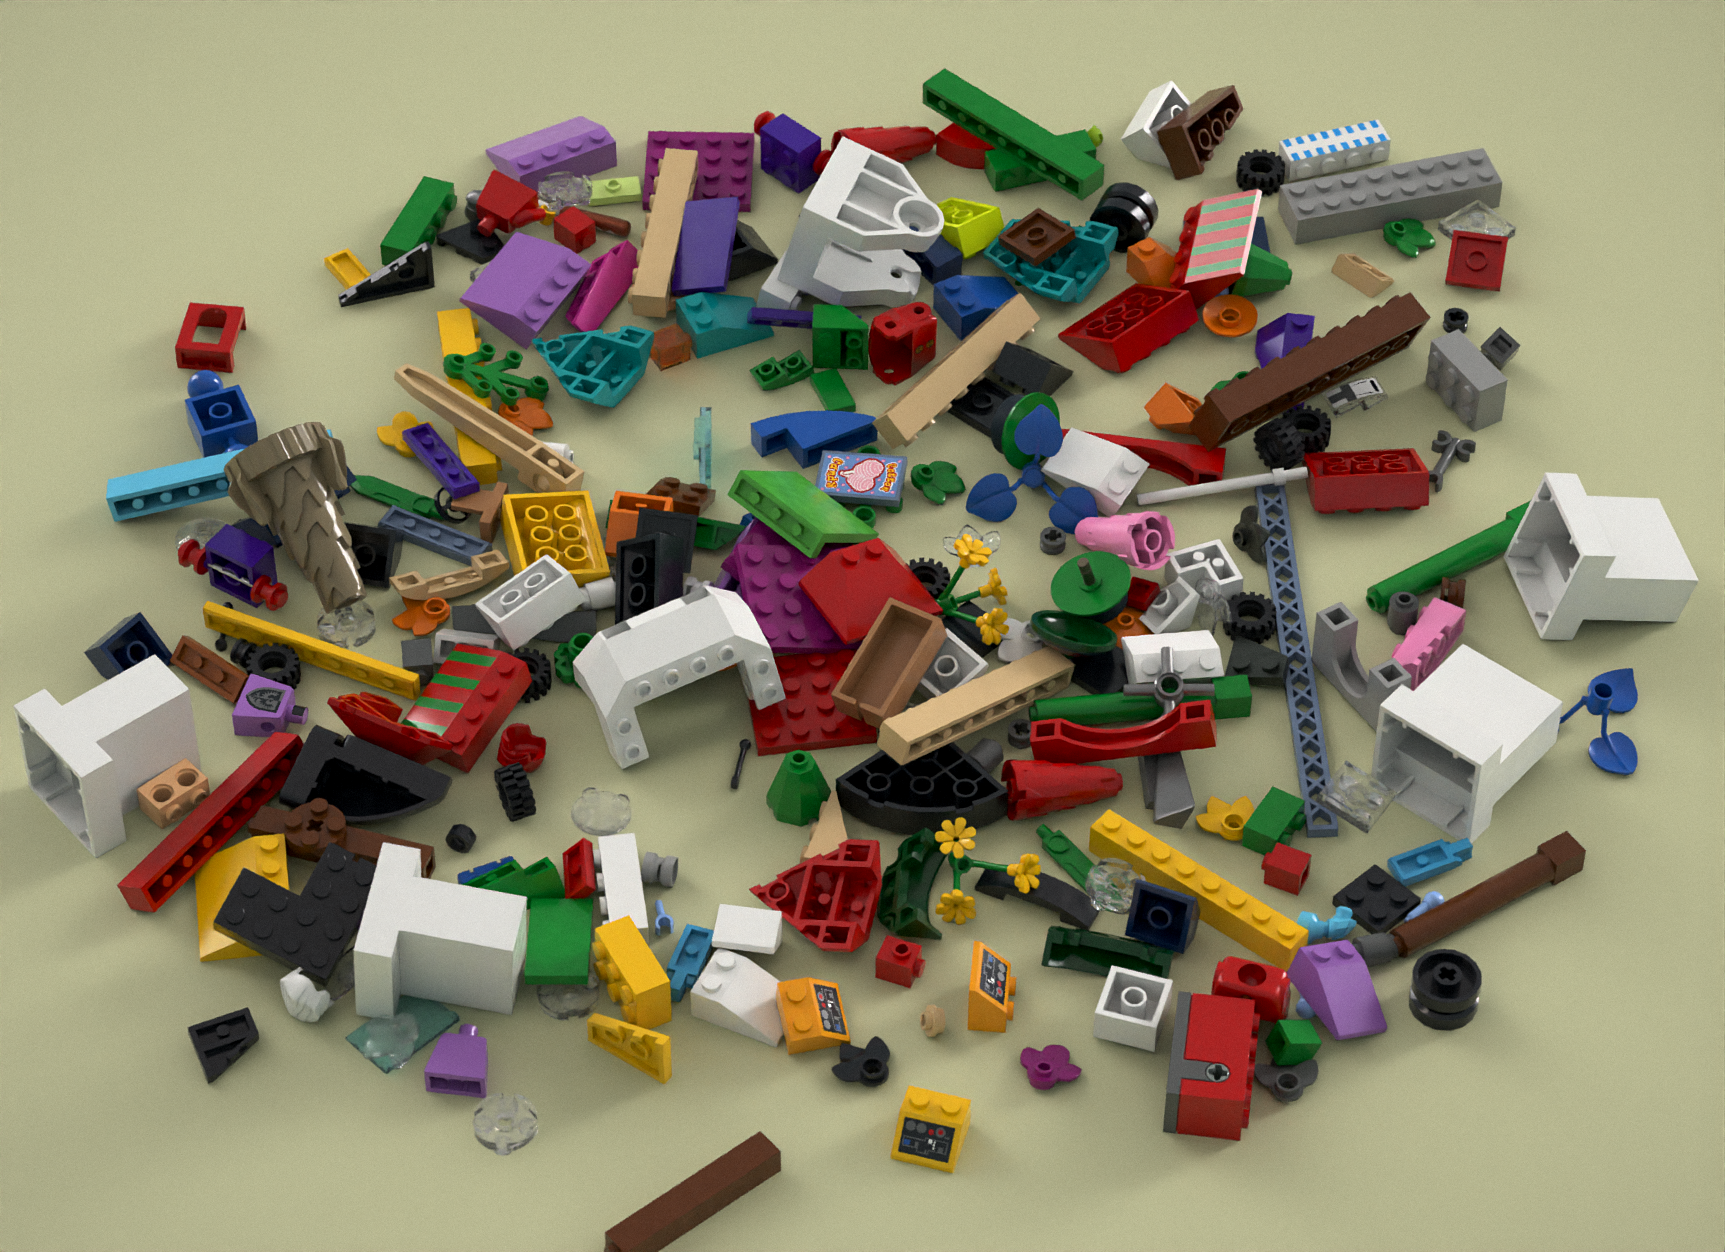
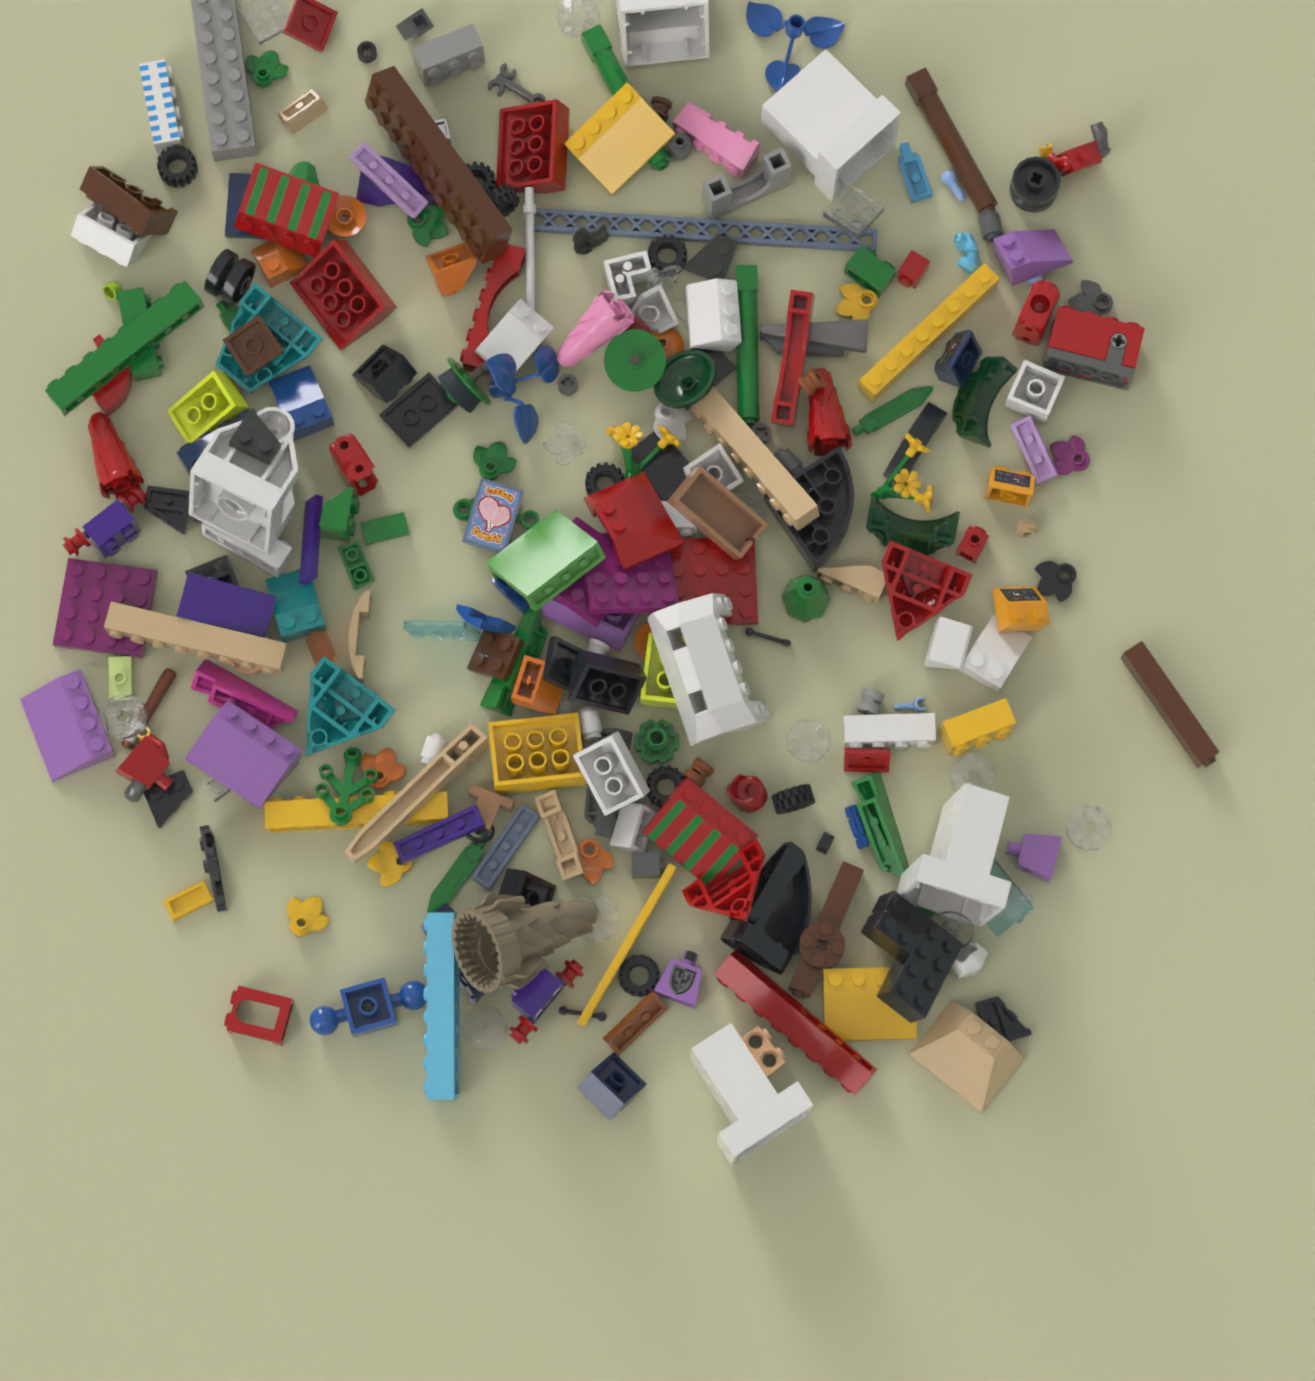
camera: 85 degrees left, 30 degrees up
(173, 1013) = (967, 1055): none -> tan slope
(241, 650) = (619, 997): black bush -> none
(335, 368) = (306, 912): none -> yellow plate
(419, 219) = (144, 840): green brick -> none
(545, 703) = (699, 772): none -> dark orange wheel
(559, 942) = (930, 776): green tile -> none
(574, 230) = (171, 712): red brick -> none
(633, 1044) = (1032, 735): yellow wing -> none
(689, 373) = (361, 609): none -> tan slope
(689, 959) = (954, 689): dark azure hinge -> none
(718, 479) = (484, 621): none -> blue brick
(812, 432) = (436, 548): blue slope -> none
(896, 194) = (255, 439): none -> pearl dark grey wing
(931, 1129) = (1122, 540): yellow slope -> none
(955, 372) = (388, 428): tan brick -> none
(1048, 1021) = (1034, 450): none -> lavender plate
(1092, 752) = (811, 382): none -> dark orange wheel
(1100, 888) = (919, 398): clear plate -> none
(1168, 679) = (749, 325): flat silver bar -> none
(1281, 326) = (388, 180): none -> lavender plate
(1293, 1042) = (1072, 290): green brick -> none
(1377, 900) = (942, 216): black plate -> none
(1397, 543) = (620, 138): none -> yellow slope
(1502, 1038) = (1081, 156): none -> red torso

